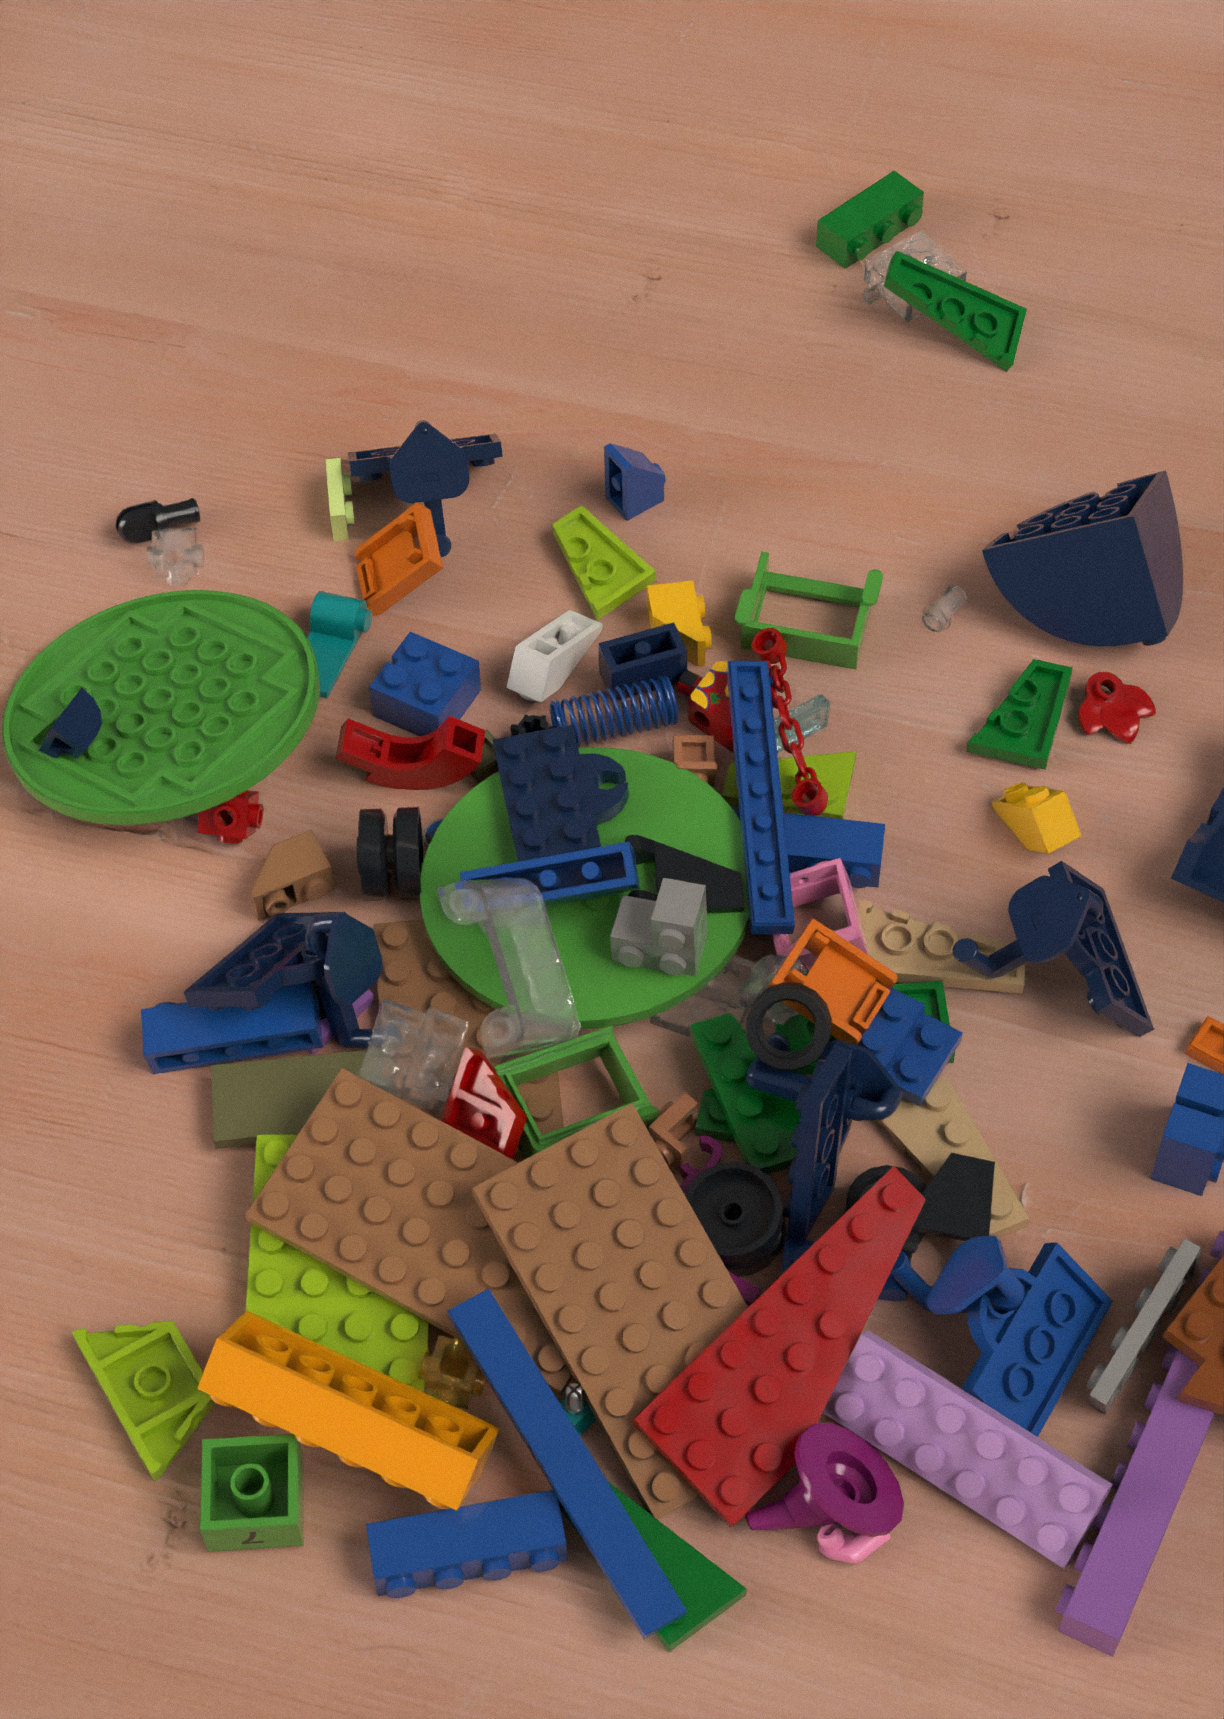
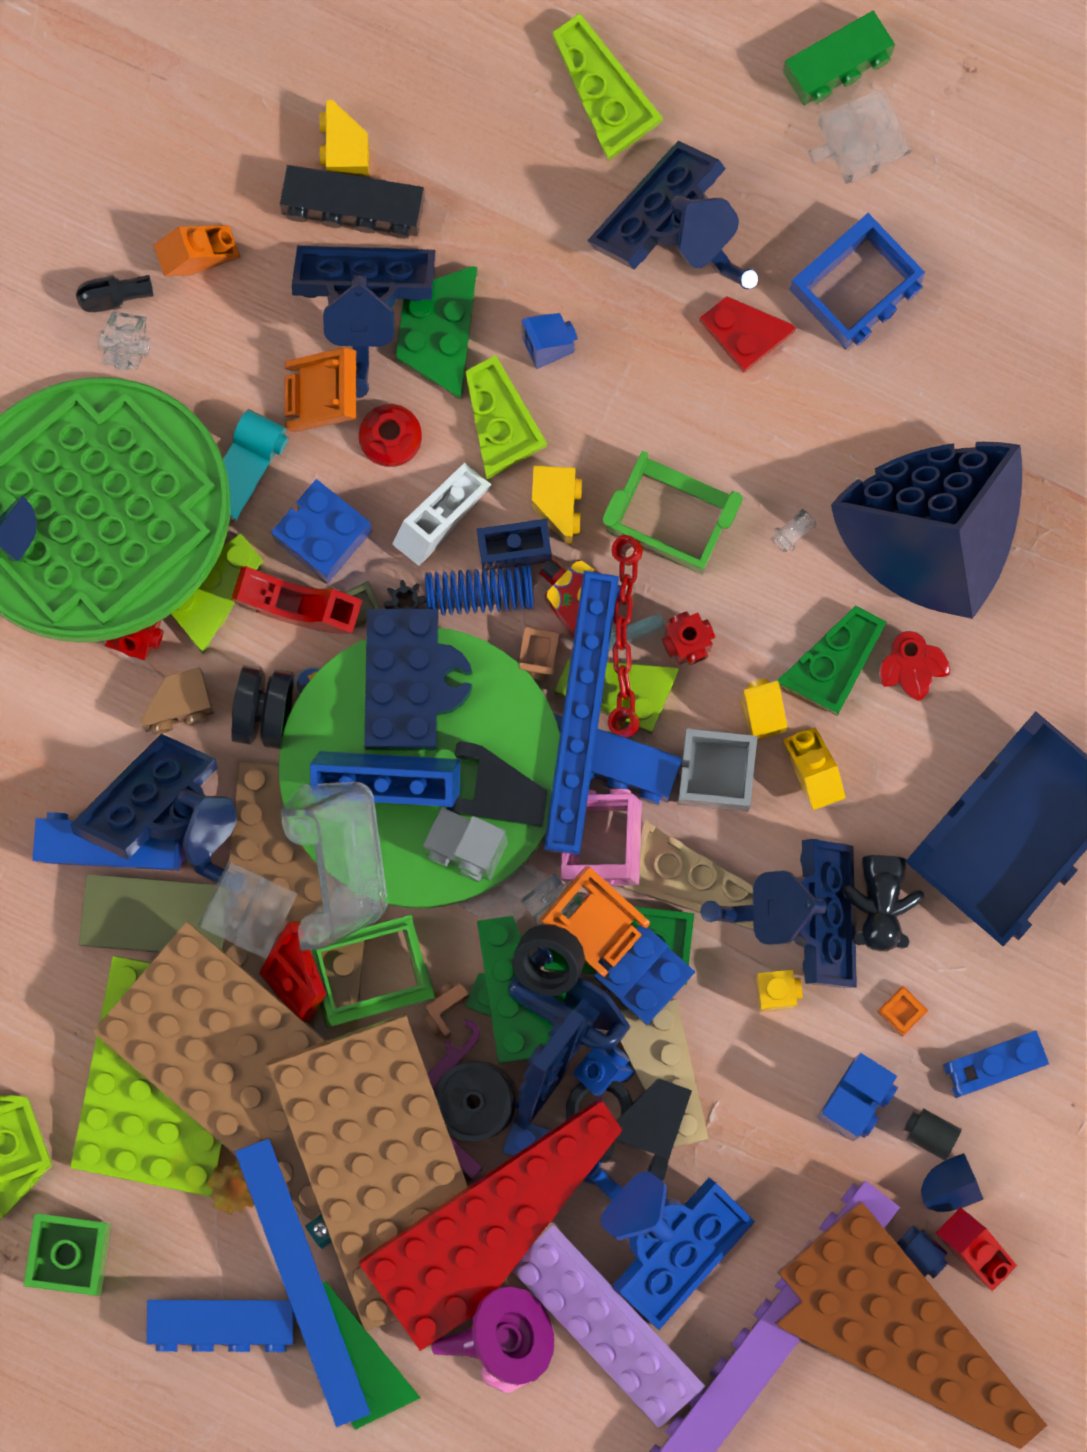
camera: 10 degrees right, 25 degrees up
(238, 468) = (195, 249): none -> orange slope
(308, 775) = (212, 602): none -> lime wing
(340, 510) = (279, 317): yellowish green plate -> none
(348, 1410) = (148, 1212): light orange brick -> none
(383, 360) = (346, 142): none -> yellow slope
(397, 403) = (352, 201): none -> black brick
(482, 609) = (390, 452): none -> red piece
(513, 500) = (437, 331): none -> green wing
(643, 282) = (607, 92): none -> lime wing
(740, 337) = (673, 210): none -> dark blue plate
(840, 451) = (745, 331): none -> red wing
(859, 718) = (685, 650): none -> red brick
(878, 1153) = (603, 1067): none -> blue bracket
(928, 832) = (717, 770): none -> light grey piece
(961, 353) = (865, 229): none -> blue window
(963, 764) = (763, 709): none -> yellow slope
(966, 311) = (898, 199): green wing -> none
(1063, 1042) = (778, 990): none -> yellow brick
(1151, 908) = (883, 881): none -> black piece
(1175, 1266) = (778, 1244): light grey wing -> none

